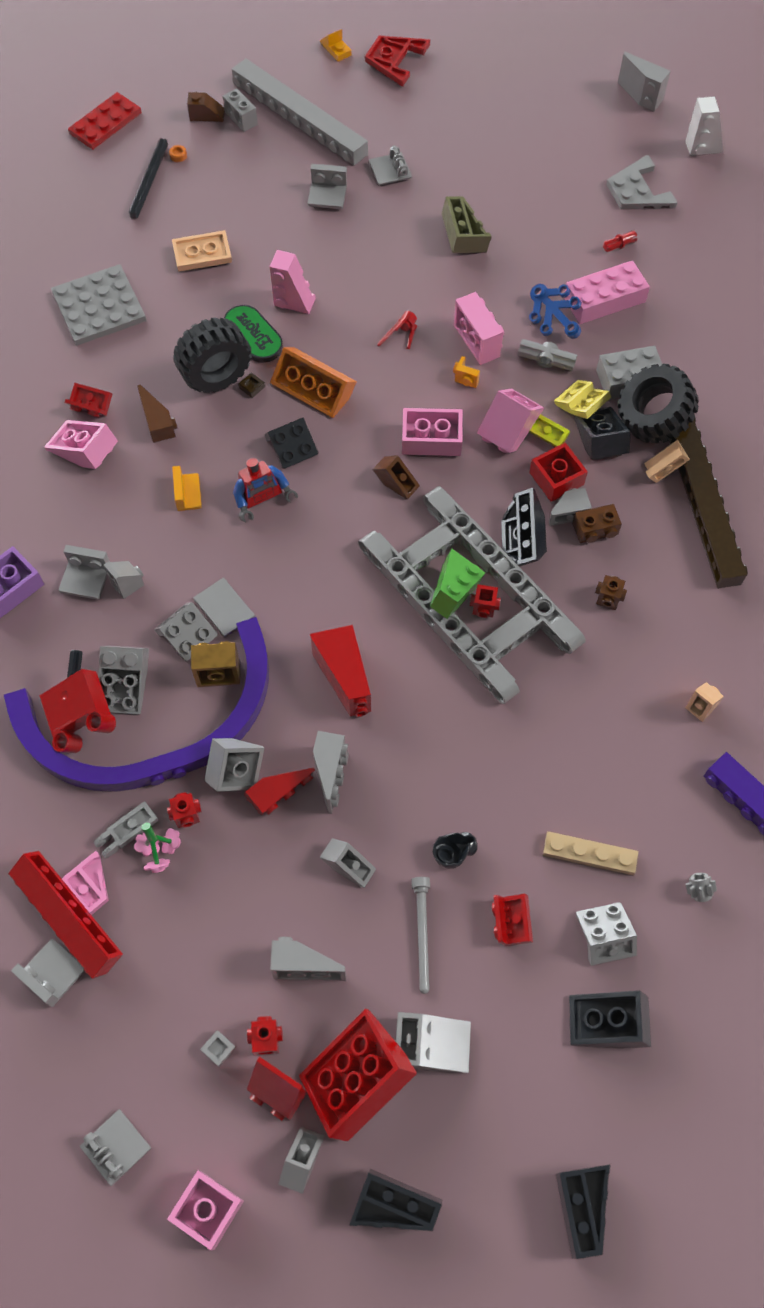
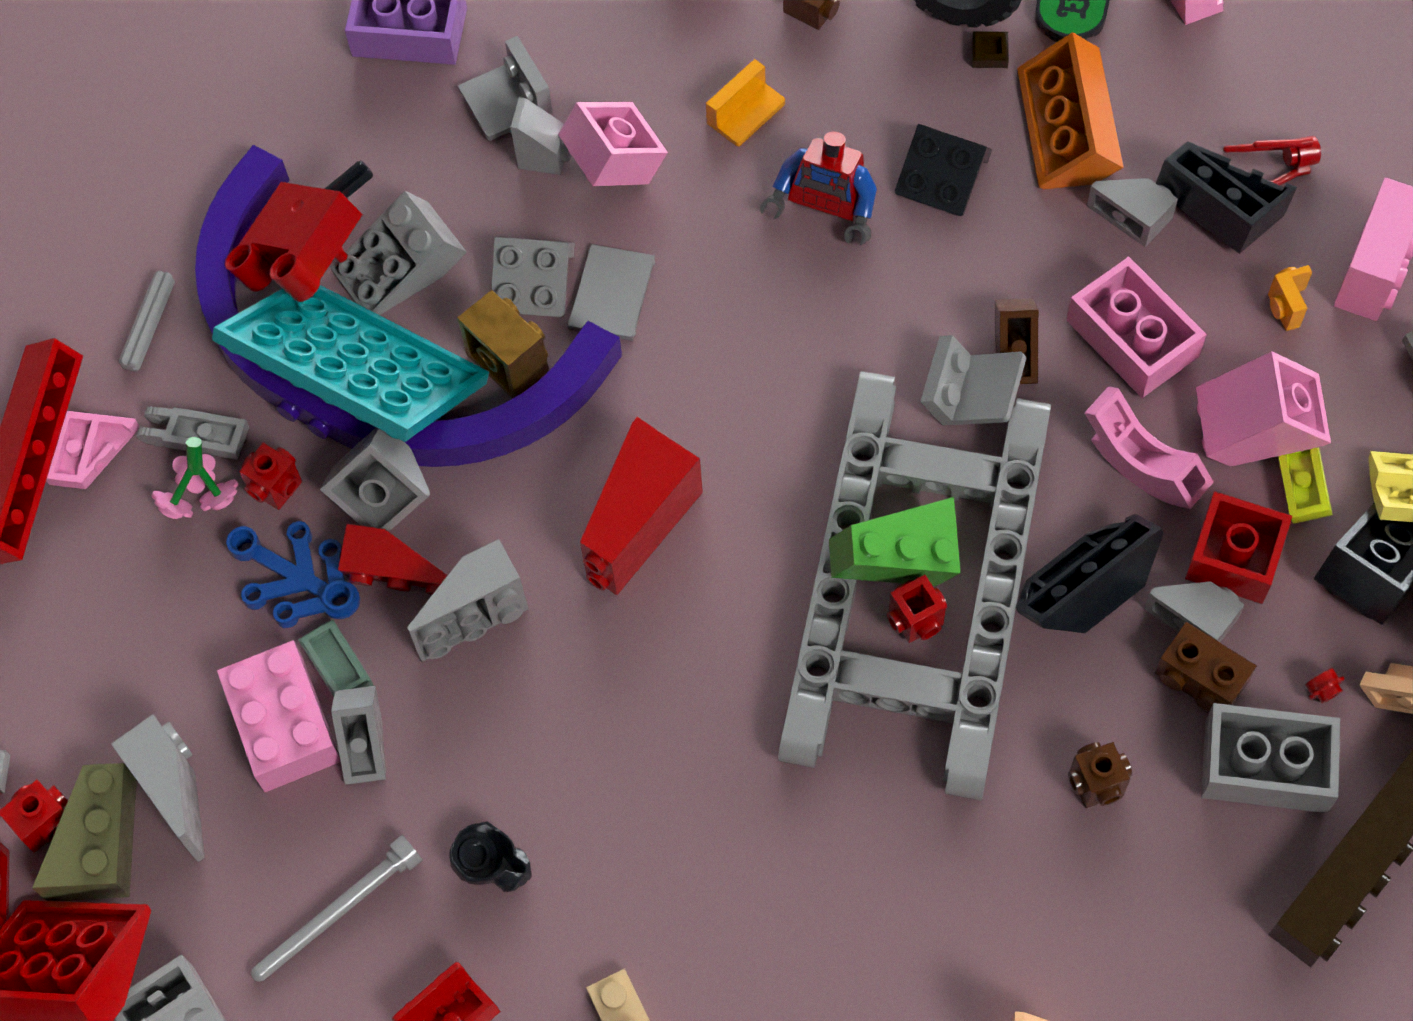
camera: 55 degrees right, 0 degrees up
(45, 810) = (146, 321): none -> light grey axle
(158, 549) = (612, 143): none -> bright pink brick
(164, 731) = (352, 359): none -> teal plate
(244, 836) = (297, 578): none -> blue plant
(300, 849) = (334, 658): none -> sand green tile
(300, 1017) = (93, 839): none -> olive wedge
(309, 891) = (278, 716): none -> bright pink brick
(376, 392) = (1133, 206): none -> light grey slope
(402, 360) = (1223, 197): none -> black wedge
(405, 505) = (971, 387): none -> light grey bracket
(491, 474) = (1141, 458): none -> bright pink arch
(636, 490) = (1325, 686): none -> red plate
(653, 529) = (1271, 758): none -> light grey brick

